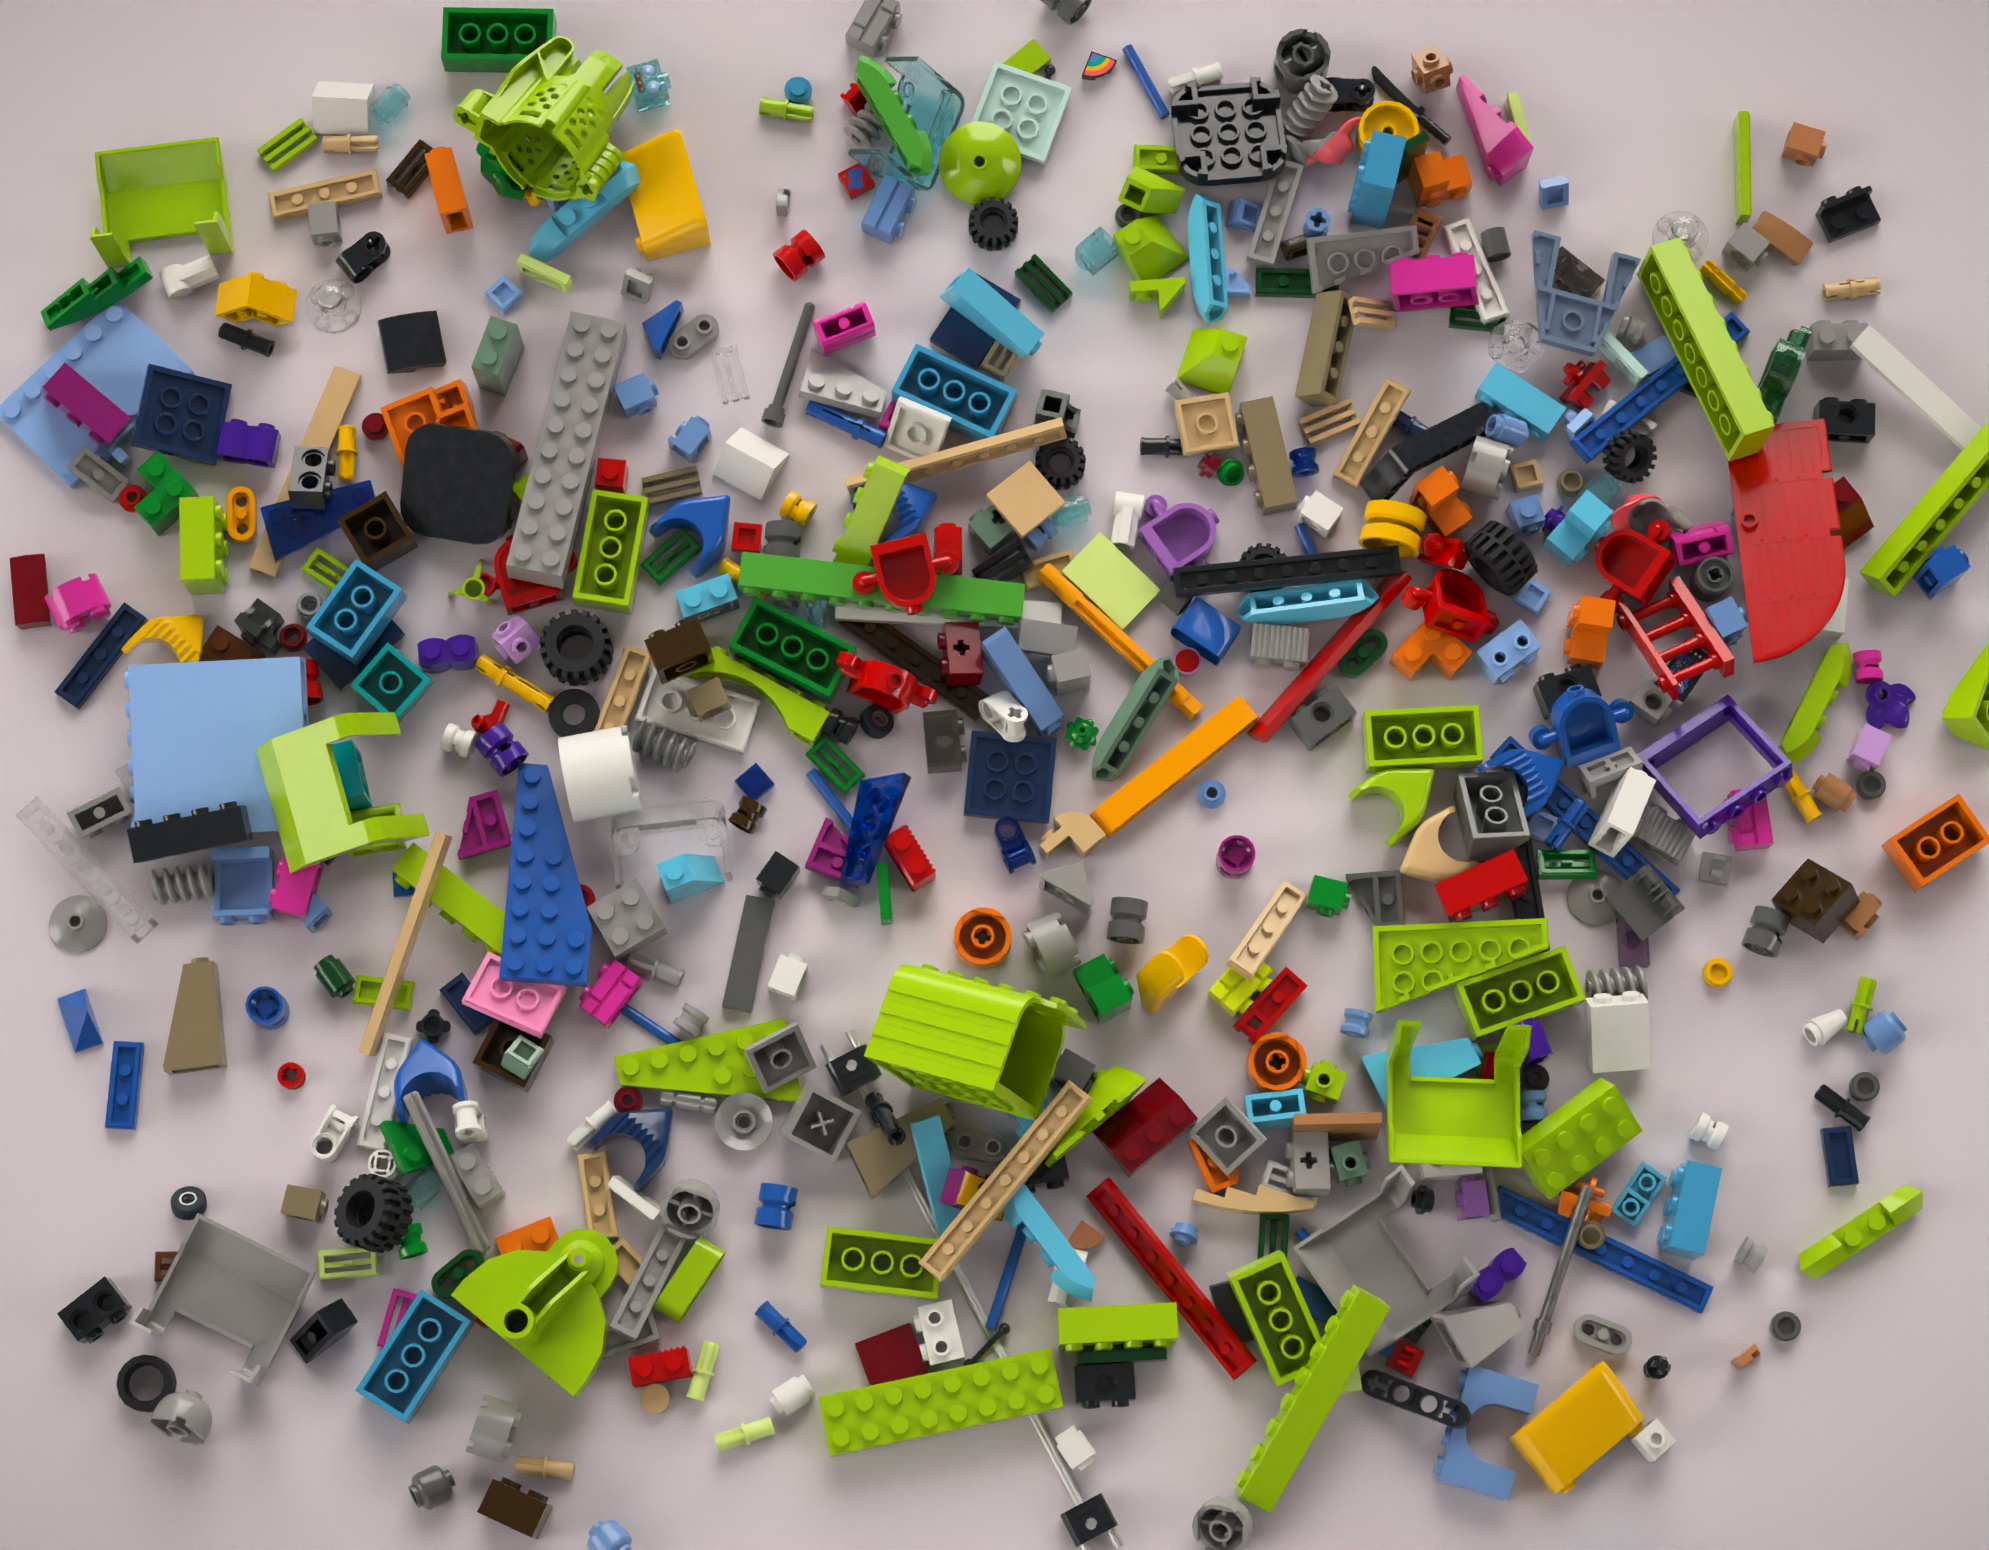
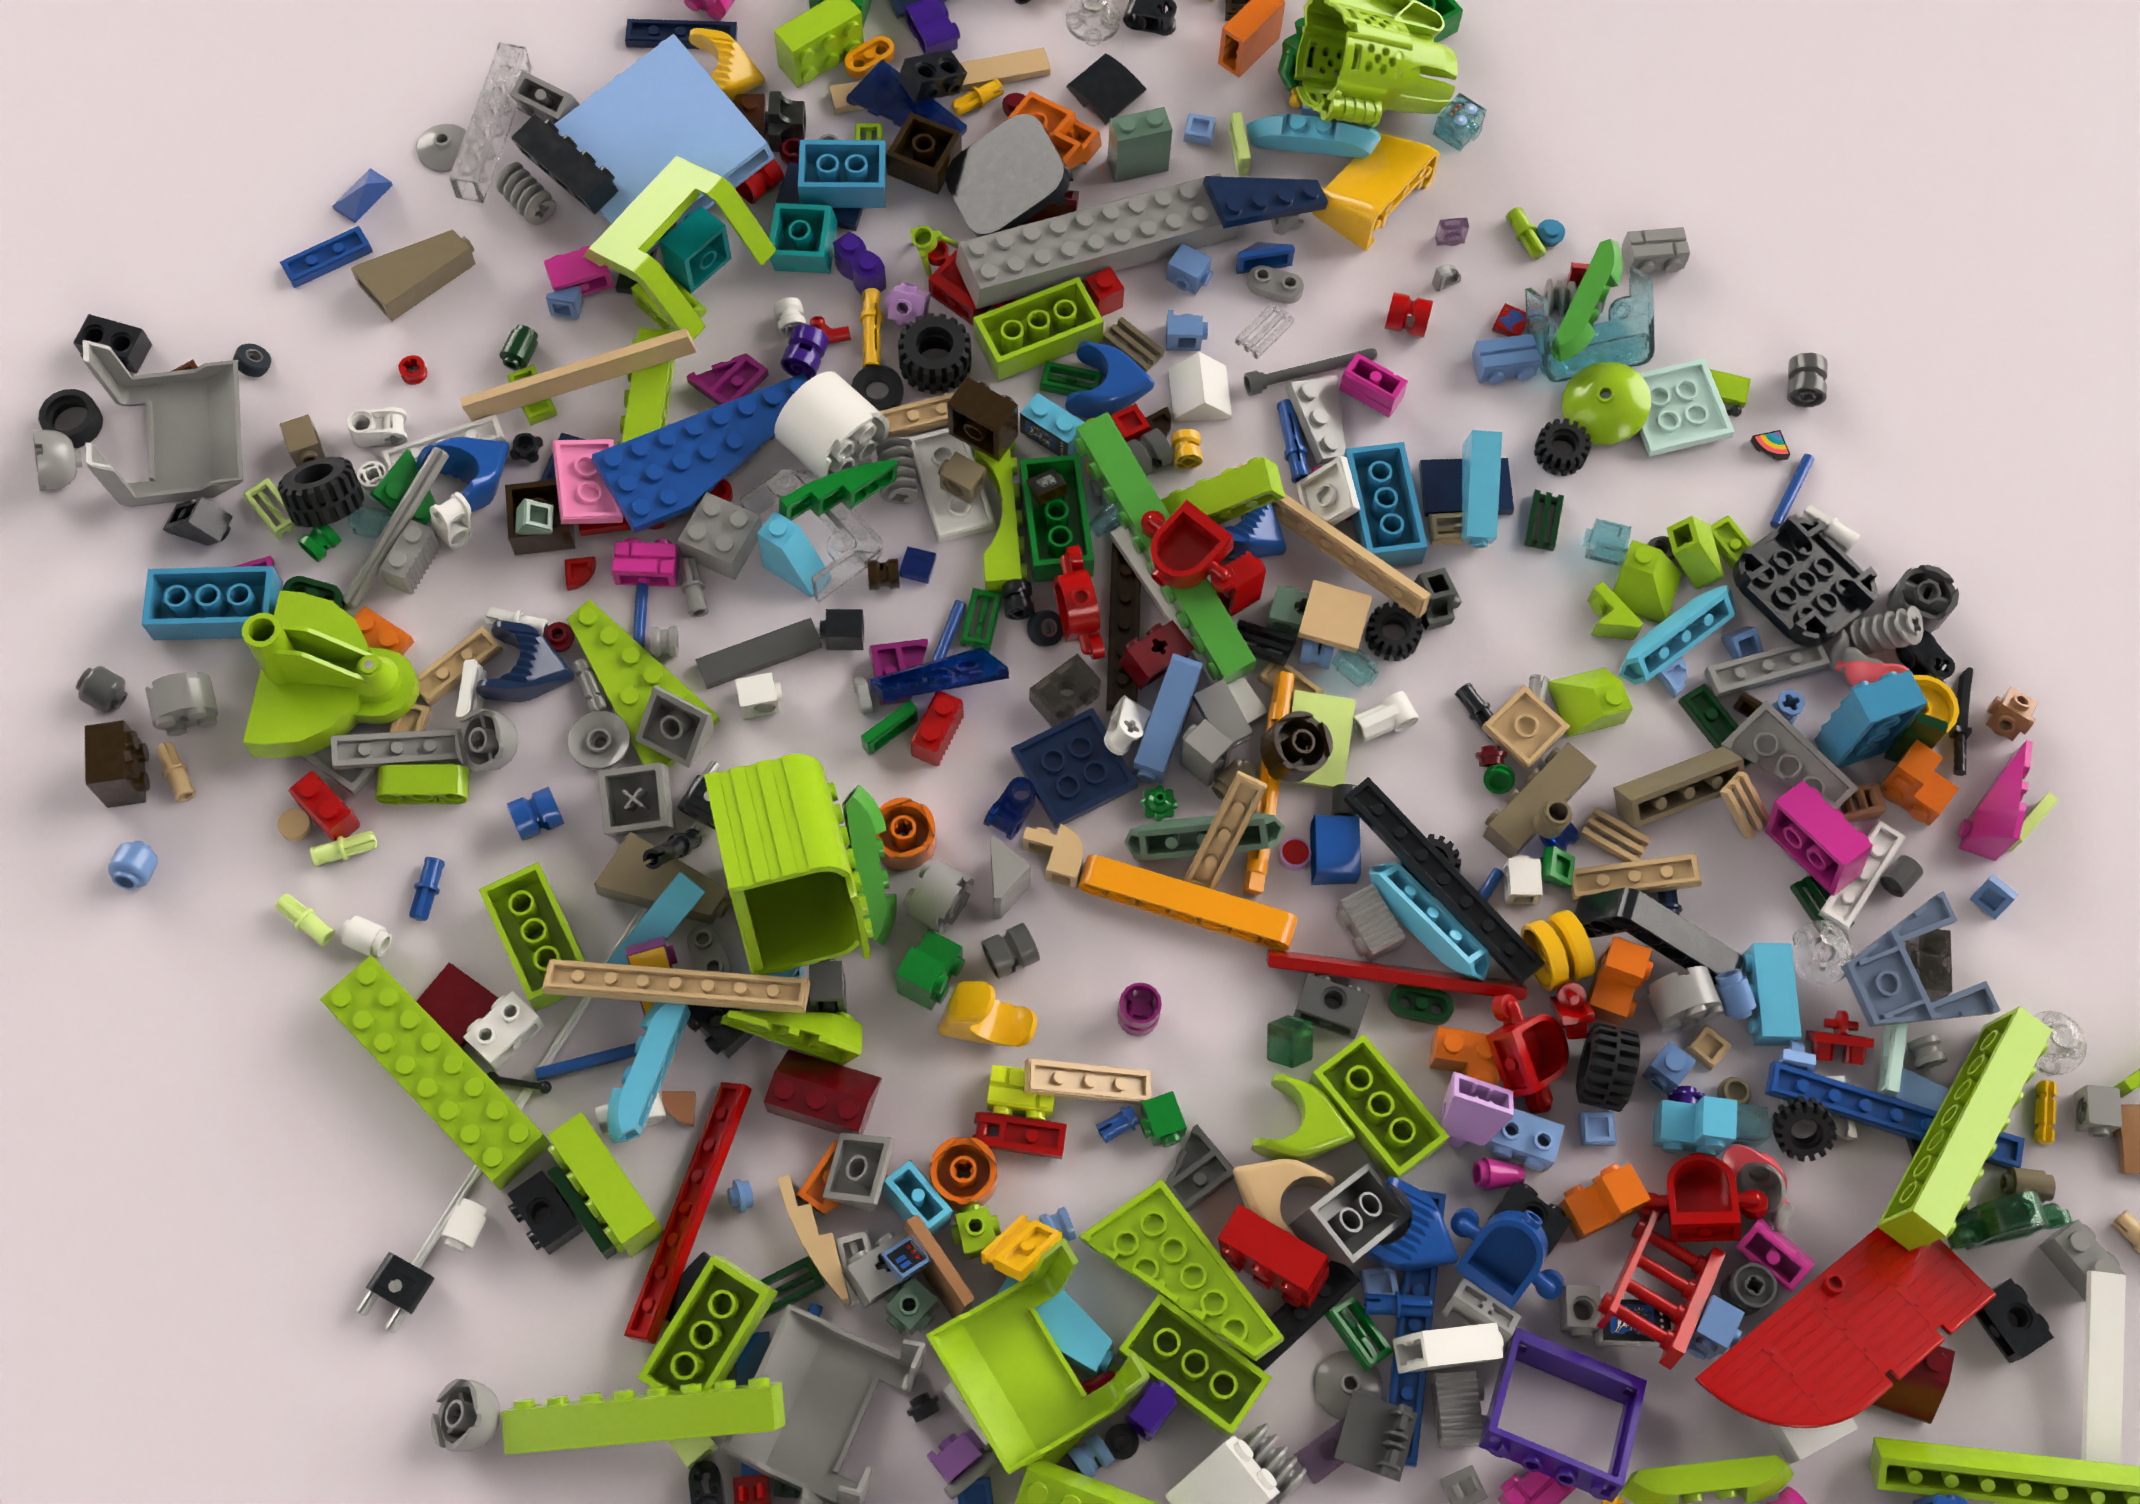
camera: 55 degrees right, 10 degrees down
(243, 884) = (552, 235): medium blue panel -> none
(267, 1008) = (457, 313): blue wheel -> none
(577, 1051) = (579, 571): none -> red tile
(620, 299) = (1261, 199): none -> dark blue wing
(667, 796) = (845, 486): none -> green slope
(746, 167) = (1452, 231): none -> clear purple plate
(757, 513) = (1161, 421): none -> dark brown tile
(768, 640) = (1047, 486): none -> slope
(972, 963) = (863, 822): none -> bright green brick
(1102, 665) = (1225, 778): none -> dark tan brick
(1114, 604) = (1295, 747): none -> dark brown brick
(1148, 702) = (1225, 831): none -> tan tile
(1178, 535) = (1409, 769): medium lavender piece -> none
(1211, 802) = (1185, 962): medium blue plate -> none
(1297, 460) = (1552, 818): none -> dark tan brick
(1308, 928) = (1118, 1124): none -> blue pin
(1318, 1143) = (906, 1259): none -> slope
(1327, 481) = (1557, 867): none -> green tile
(1328, 765) = (1290, 1041): none -> clear green panel
(1362, 1056) = (1020, 1247): none -> yellow plate
(1471, 673) = (1474, 1110): none -> lavender torso
(1519, 690) = (1496, 1174): none -> dark pink cone
(1764, 336) = (2027, 1180): none -> dark tan brick

